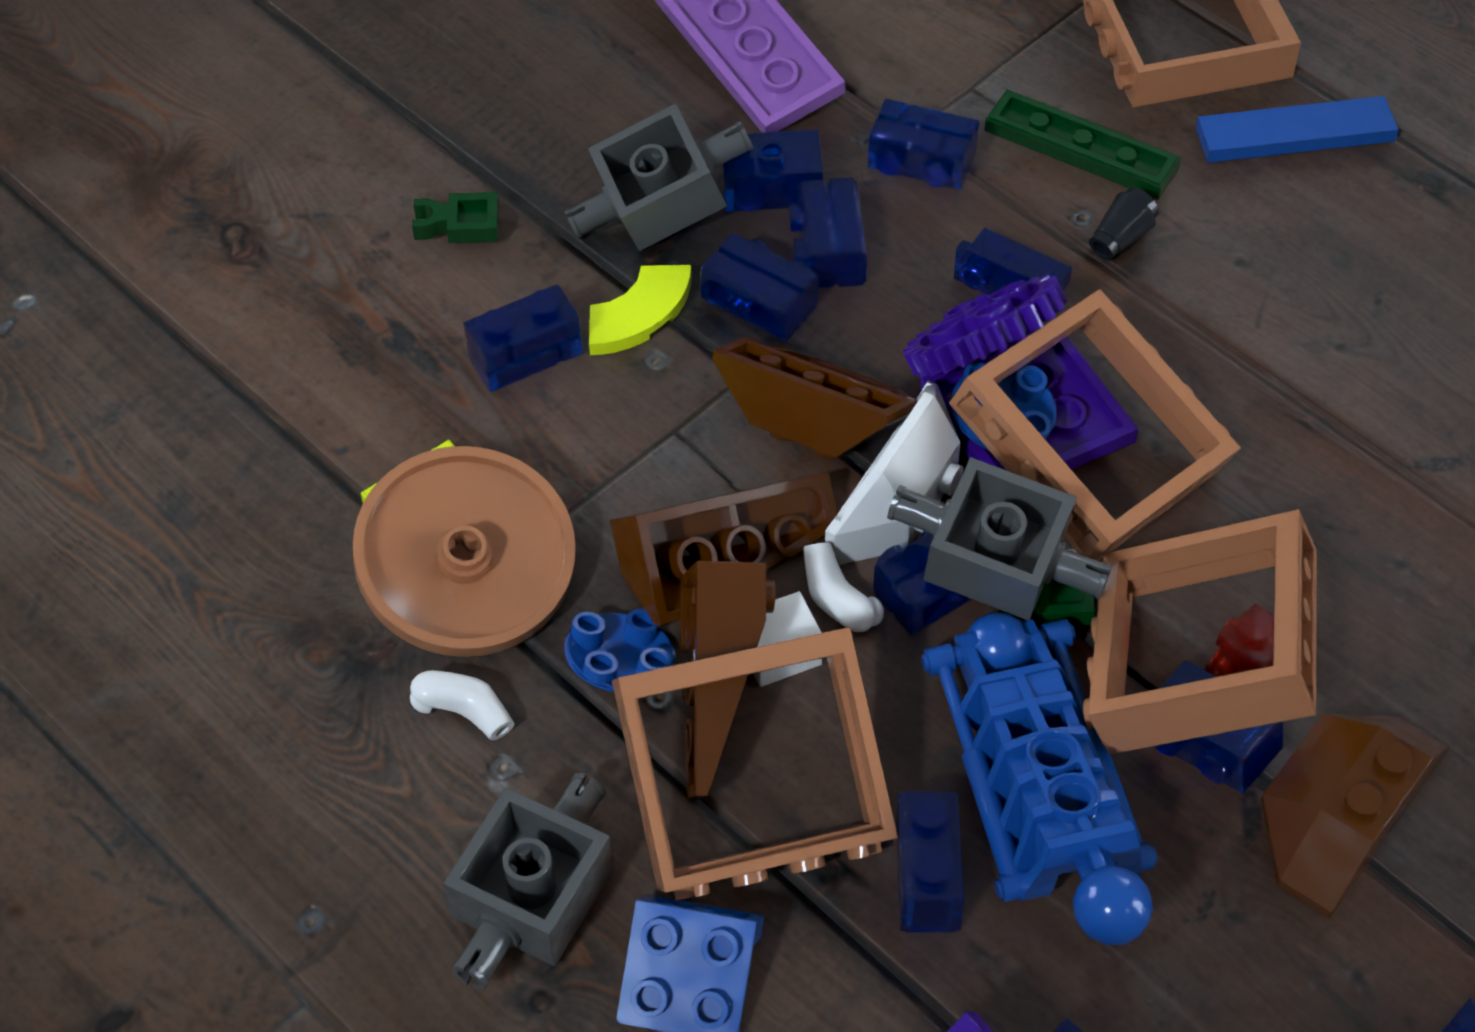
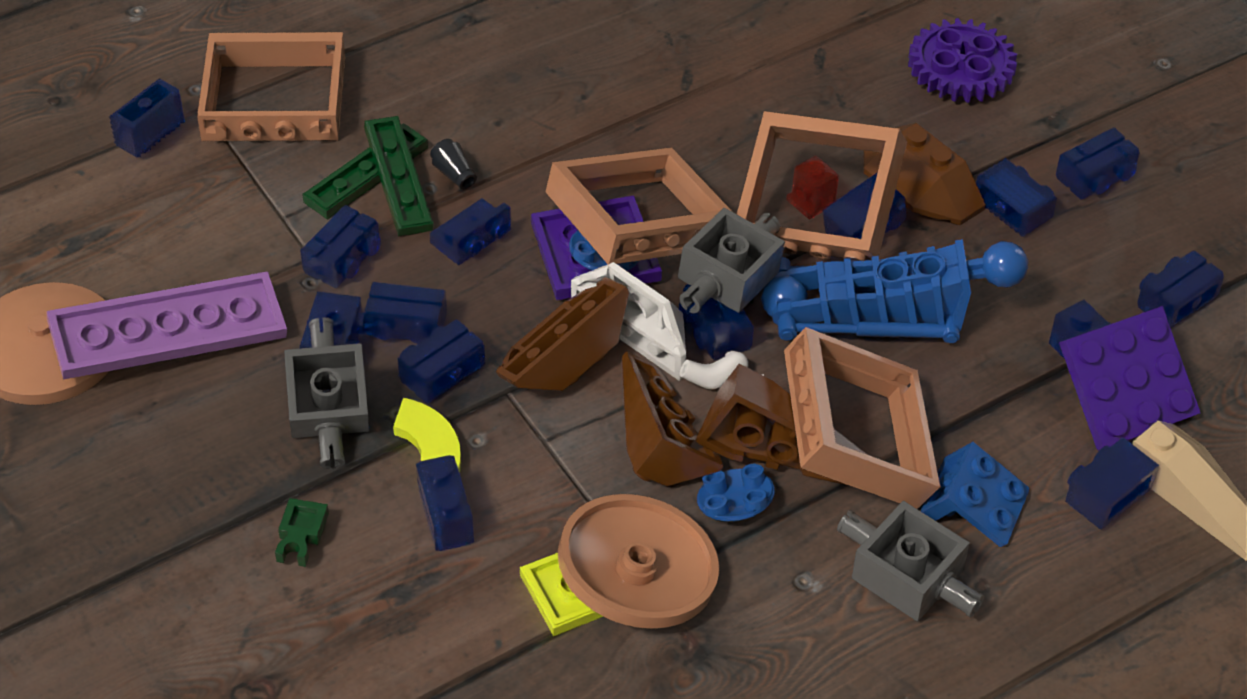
camera: 80 degrees left, 5 degrees down
(463, 696) = (750, 587): white arm -> none
(929, 861) = (939, 361): clear blue brick -> none
(985, 326) = (543, 237): dark purple gear -> none
(1074, 170) = (398, 176): none -> dark green tile
(1296, 129) = (398, 66): blue tile -> none
(1356, 948) = (1016, 197): none -> clear blue brick

